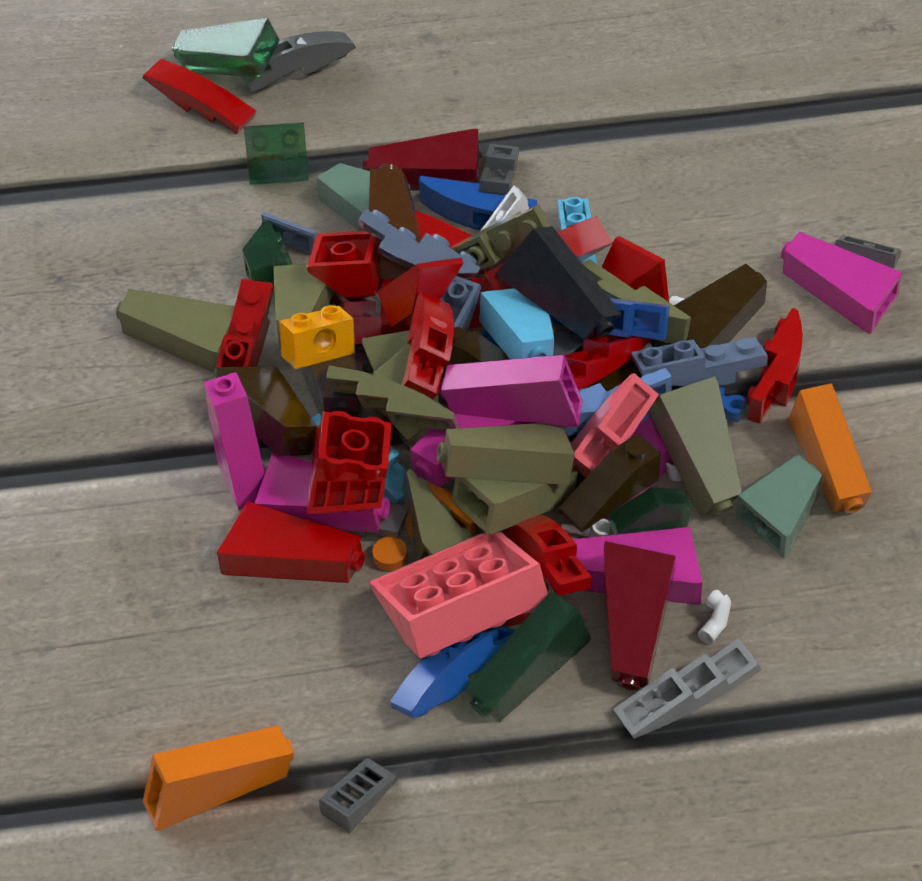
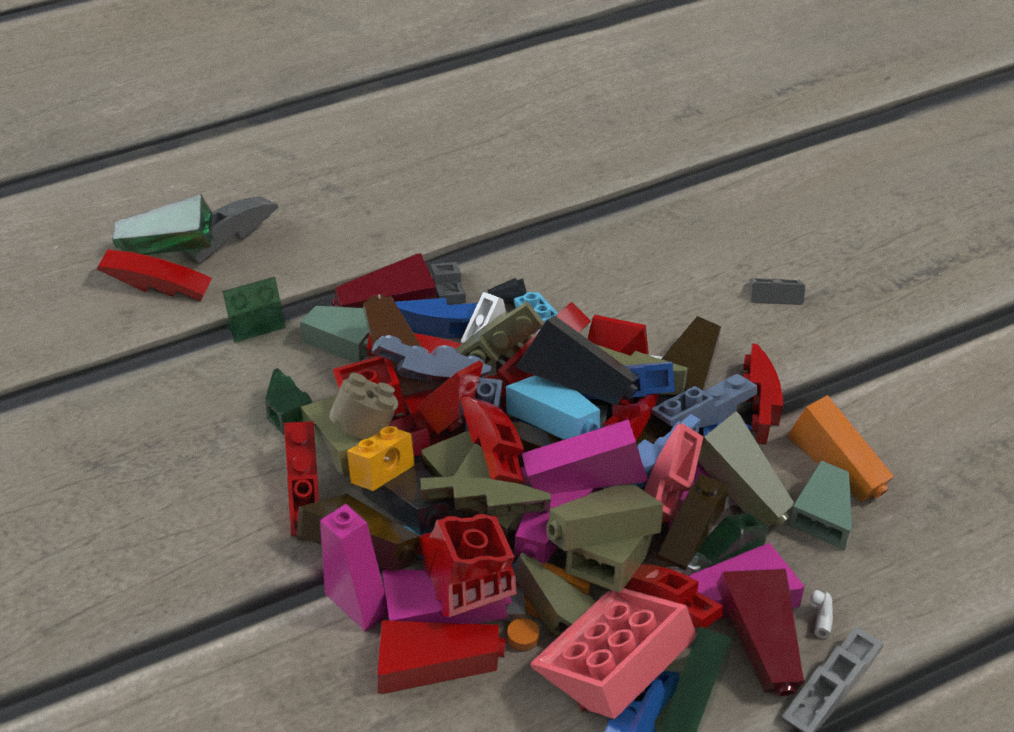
camera: 25 degrees left, 5 degrees down
(176, 325) = (235, 480): olive slope -> none
(292, 234) = (303, 376): sand blue slope -> none
(318, 278) = (363, 406): none -> dark tan brick
(555, 190) = (509, 290): none -> black cone
(842, 279) = (771, 312): dark pink slope -> none

